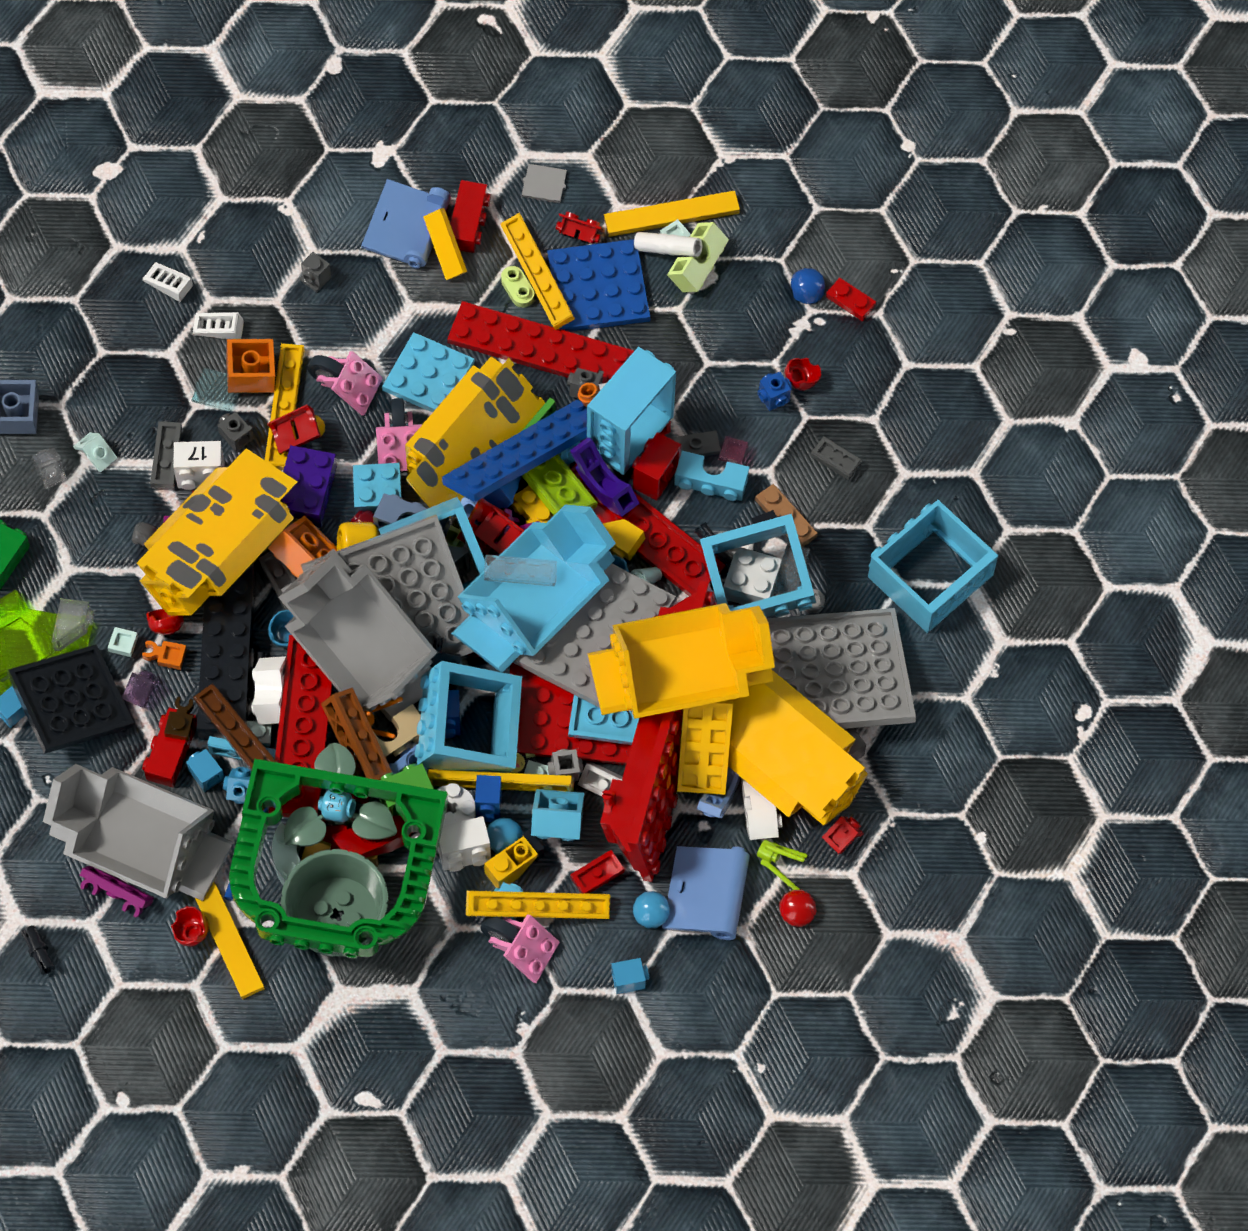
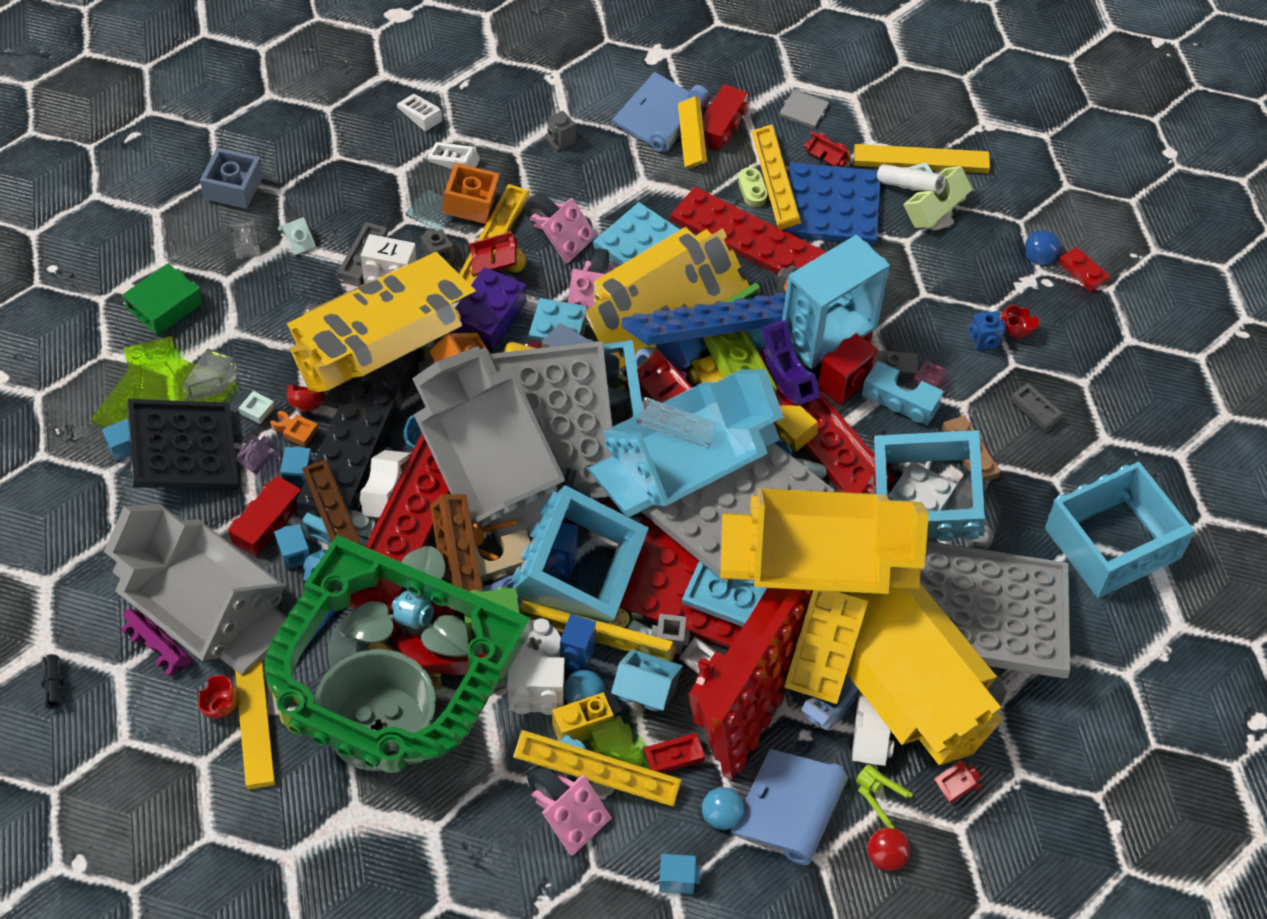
camera: 15 degrees right, 10 degrees down
(180, 722) = (282, 492): dark brown plate -> none
(181, 686) = (293, 461): none -> dark azure brick
(543, 876) = (615, 741): none -> clear neon green slope

